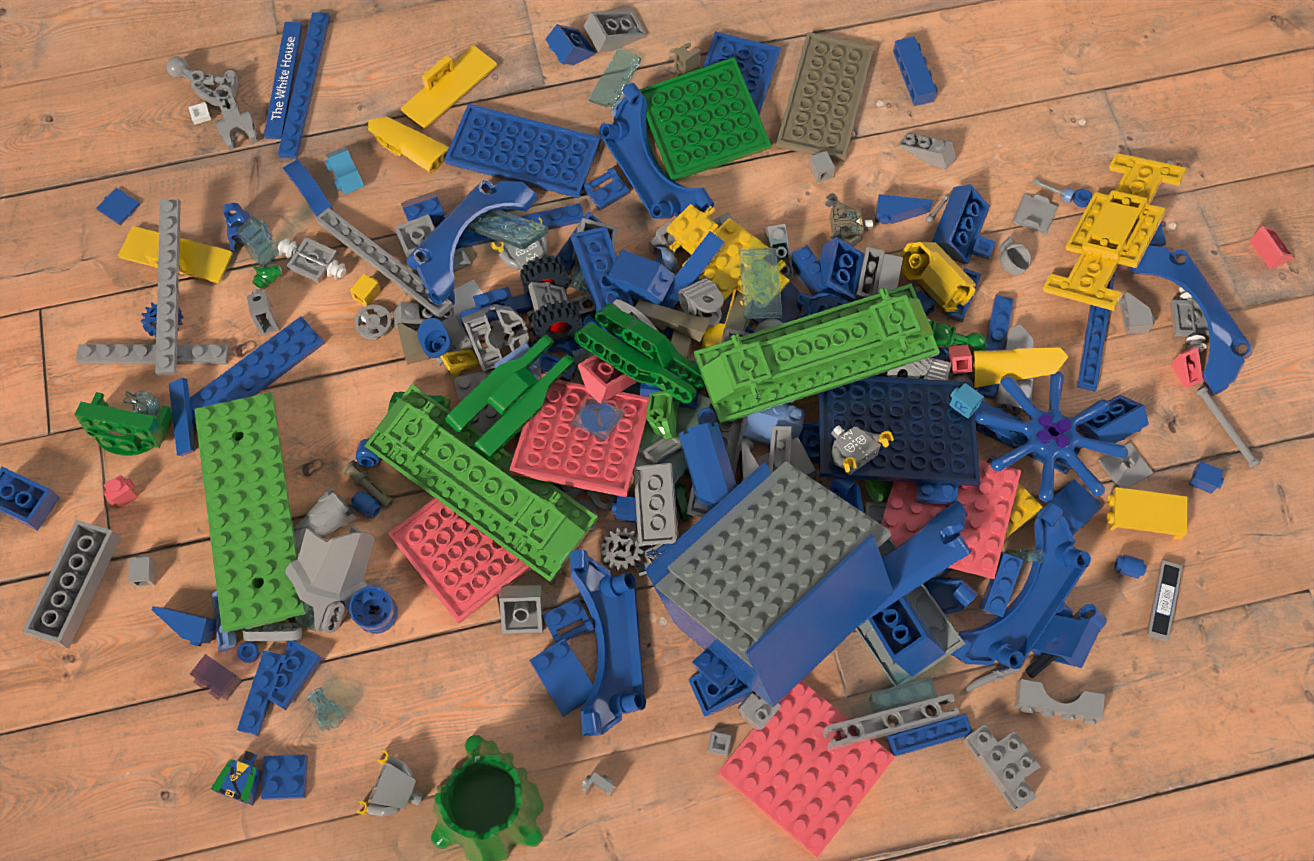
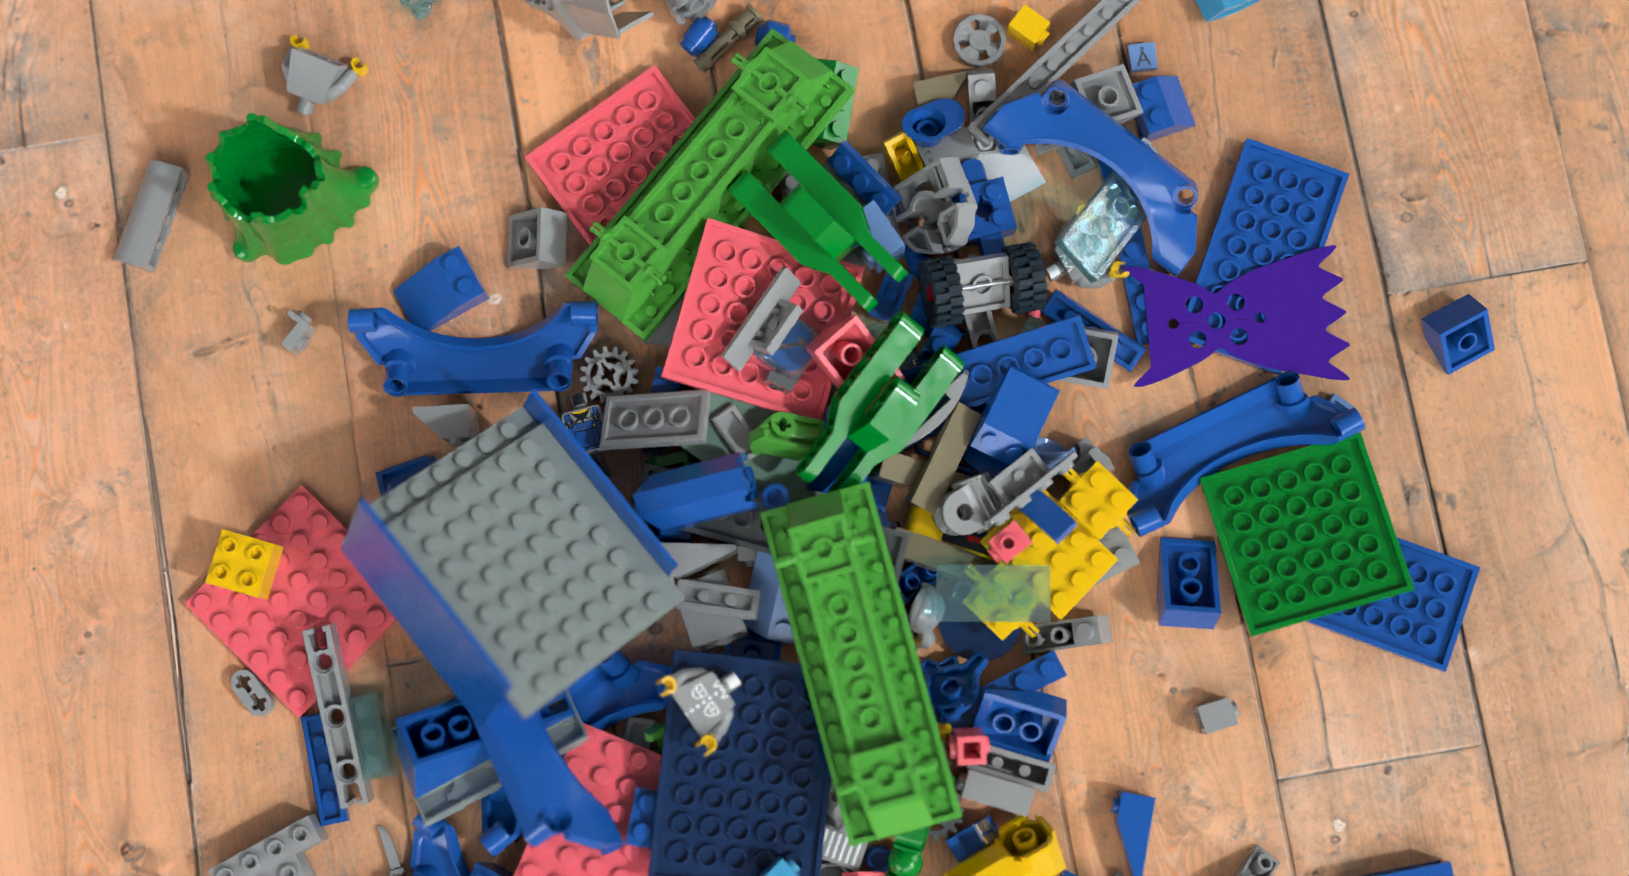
camera: 100 degrees right, 15 degrees up
(364, 603) = (538, 35): blue wheel -> none
(387, 223) = (1142, 57): none -> medium blue tile
(409, 142) = (1280, 86): yellow panel -> none
(447, 84) = (1387, 144): yellow bracket -> none
(472, 381) = (863, 178): none -> blue plate
(566, 616) = (525, 299): blue plate -> none
(580, 134) = (1287, 340): none -> dark purple piece
(585, 424) = (767, 321): none -> light grey bracket
(609, 193) = (1187, 390): blue plate -> none
(613, 29) = (1489, 405): light grey slope -> none
(615, 78) = (1393, 397): clear light blue windscreen -> none
(625, 418) = (779, 380): none -> dark grey plate
(667, 652) = (450, 422): none -> light grey slope
(685, 60) = (1411, 517): dark tan hinge -> none
(685, 265) = (1021, 480): none -> light grey bracket
(719, 743) = (339, 490): light grey tile -> none
(726, 273) = (1008, 543): none -> coral brick
(740, 183) = (1188, 584): none -> blue slope
(785, 802) = (244, 564): none -> yellow brick
(825, 96) = (1352, 736): dark tan plate -> none
(846, 222) = (1106, 742): torso -> none
(862, 288) = (967, 746): none -> coral brick
(877, 792) = (248, 697): none -> light grey beam

